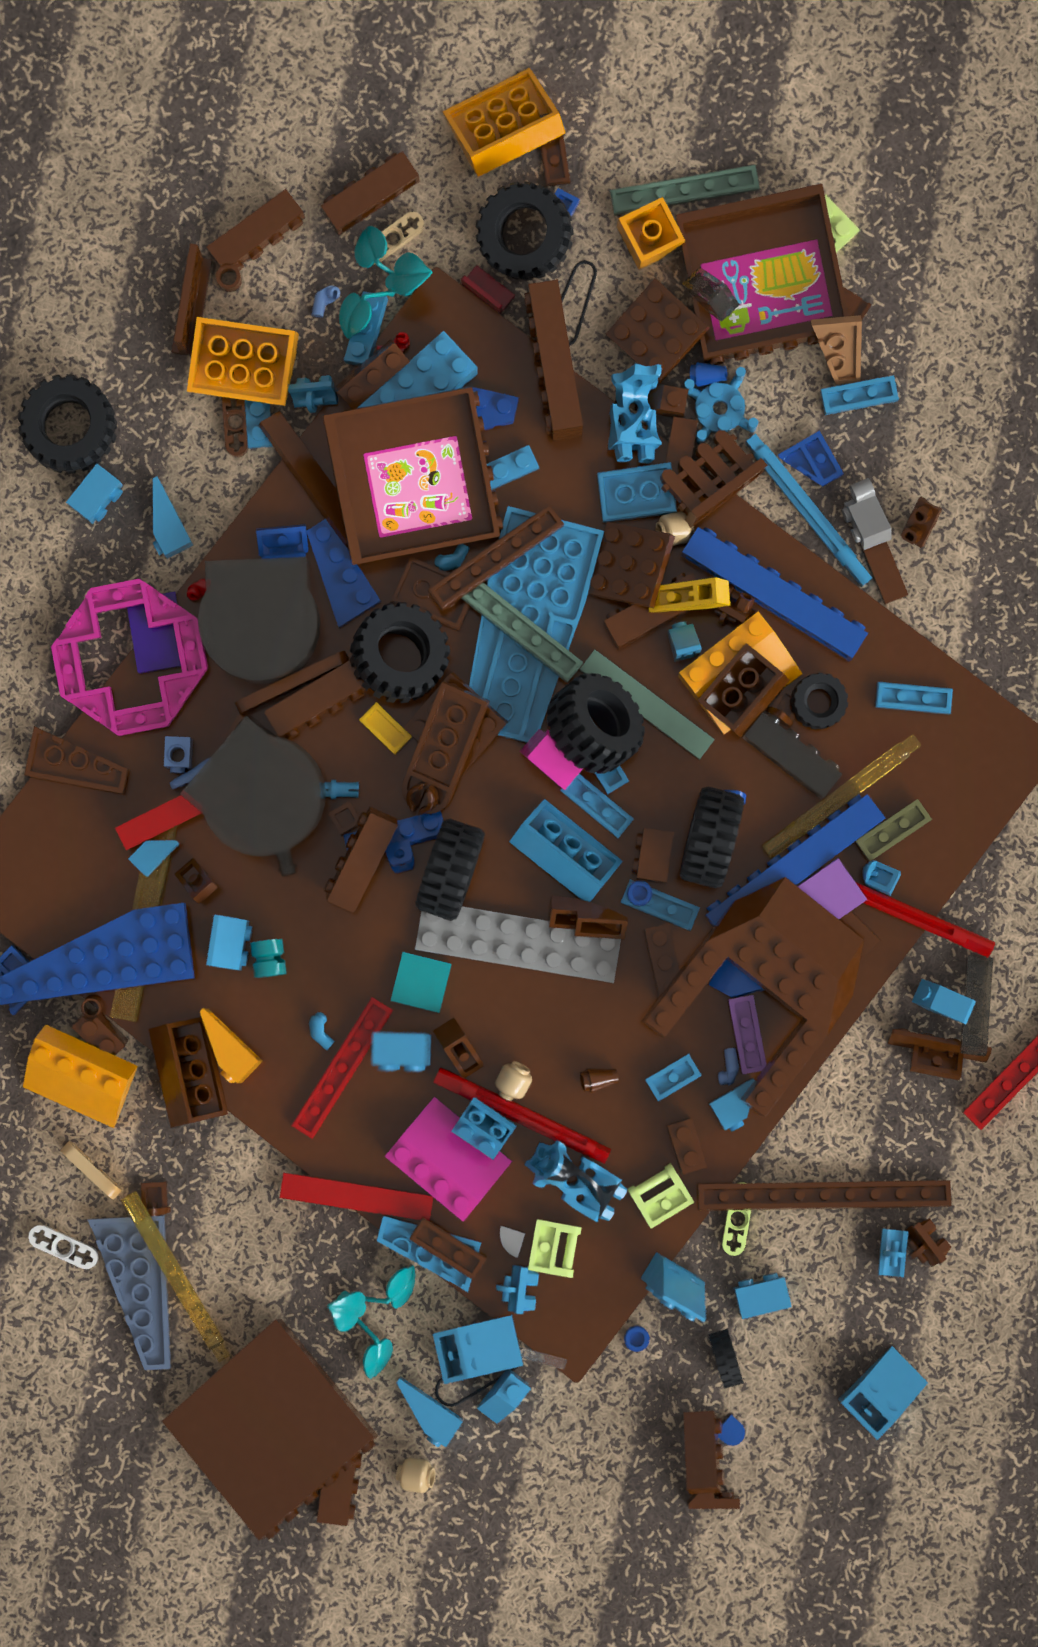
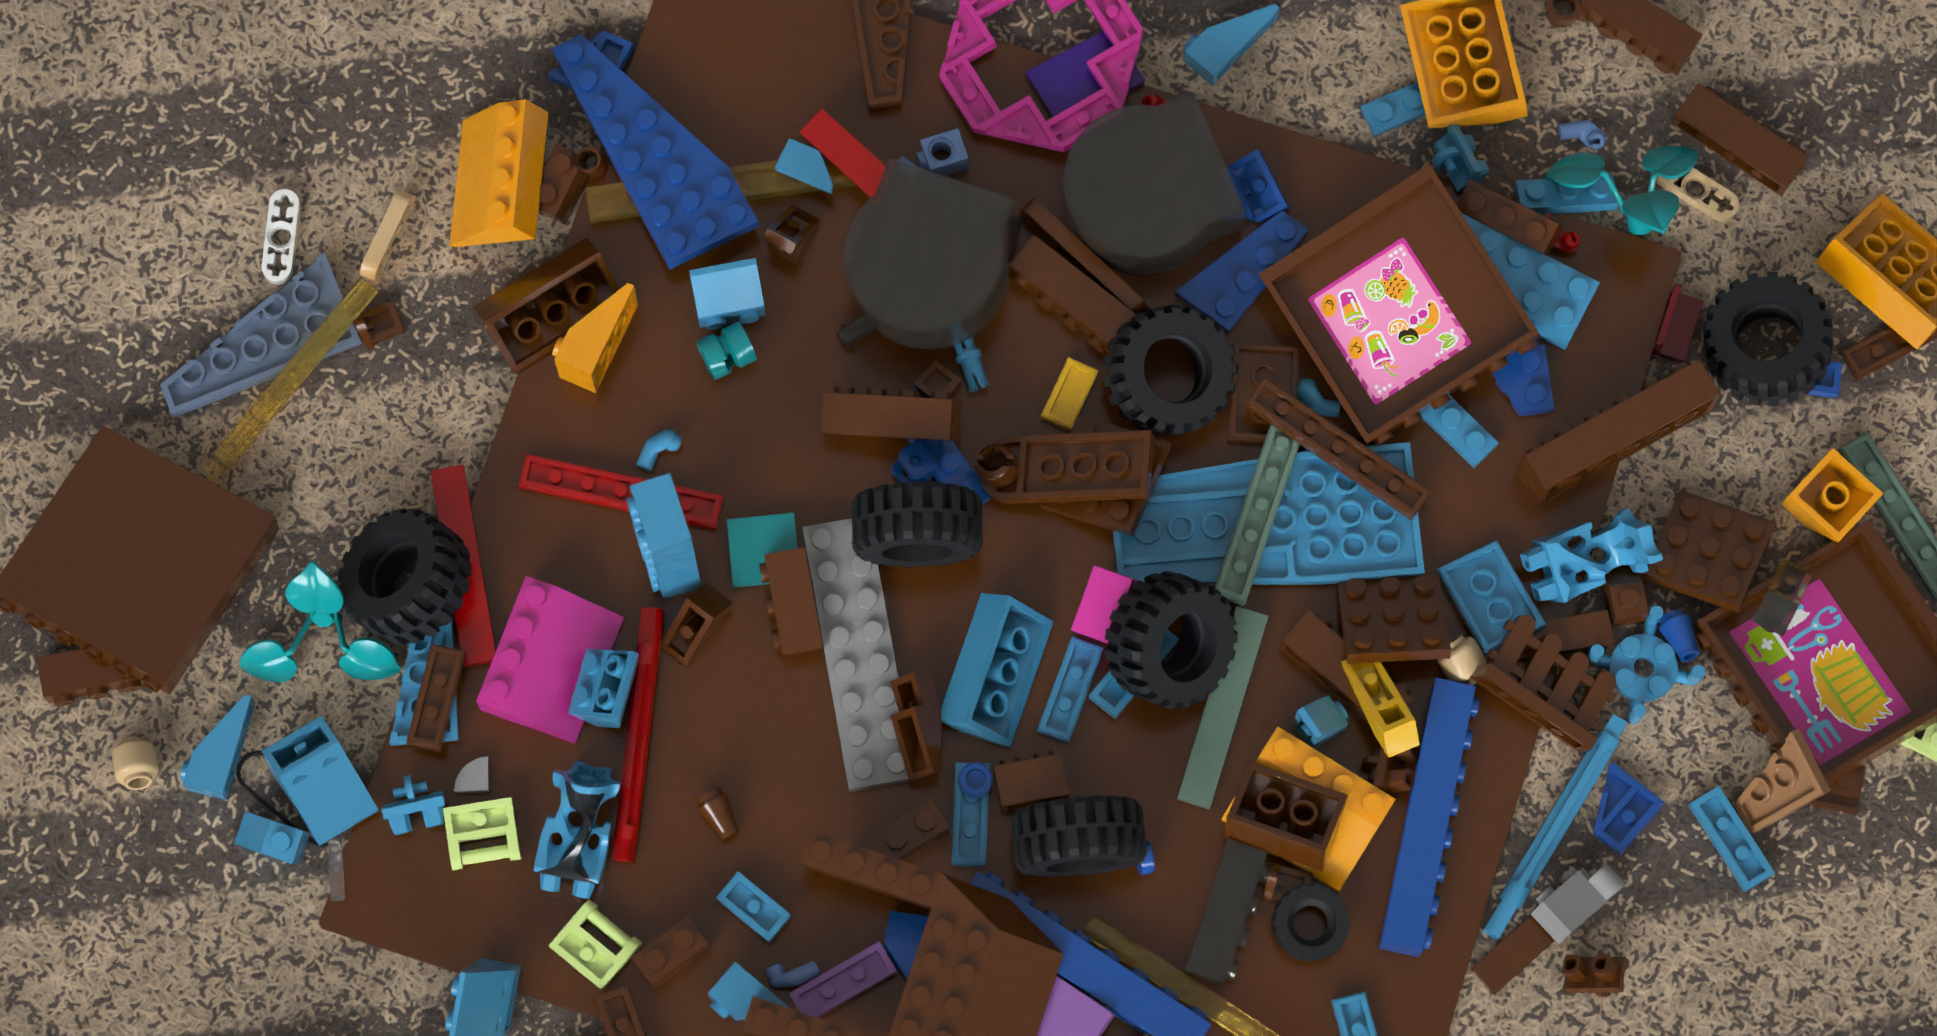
camera: 65 degrees right, 10 degrees down
(229, 440) = (1362, 82): reddish brown beam -> none
(305, 469) = (1364, 173): reddish brown tile -> none
(339, 1263) = (429, 594): none -> black tyre
(468, 976) = (791, 602): none -> reddish brown brick
(513, 1081) = (678, 706): tan head -> none
(587, 298) = (1716, 454): black piece -> none
(636, 1338) = (401, 982): blue tile -> none

